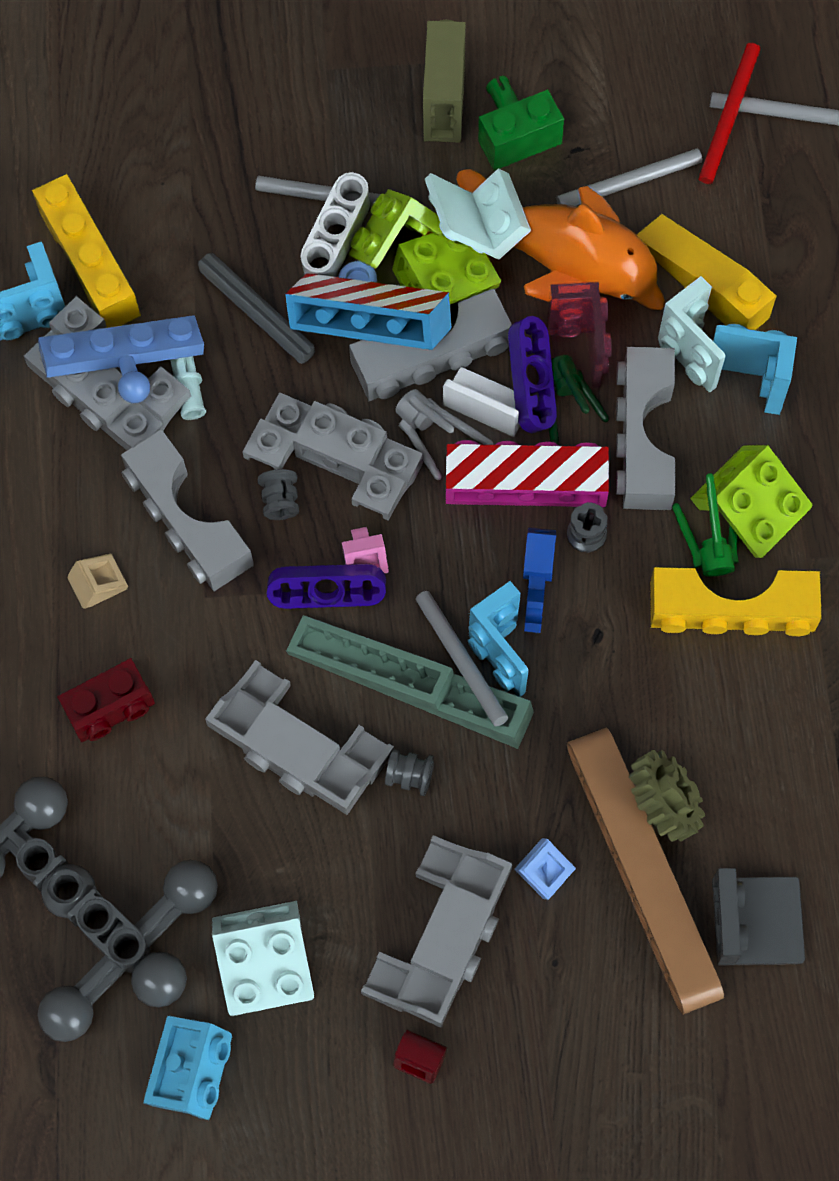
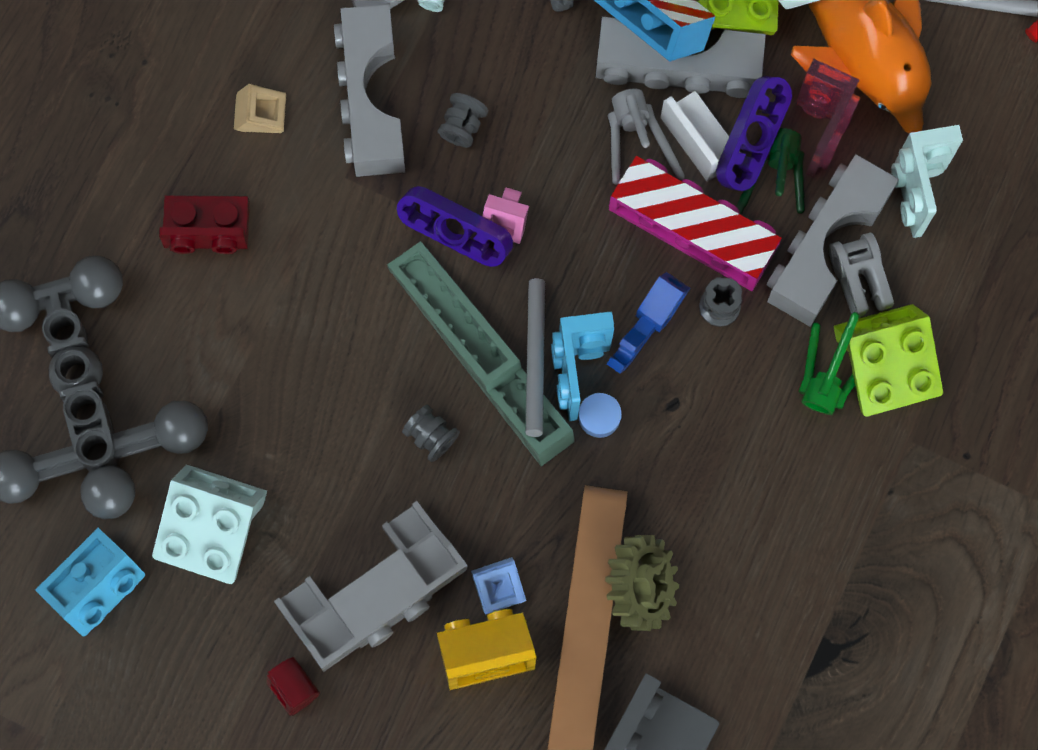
camera: 25 degrees right, 5 degrees up
(291, 747) = (342, 366): light grey bracket -> none
(339, 445) = (542, 104): light grey bracket -> none
(544, 678) = (599, 415): none -> light blue tile
(569, 927) = (486, 649): none -> yellow slope
(684, 429) = (861, 258): none -> light grey piece
(684, 603) = (859, 471): yellow arch -> none
(735, 291) = (986, 147): yellow slope -> none
(759, 354) = (979, 228): medium azure bracket -> none

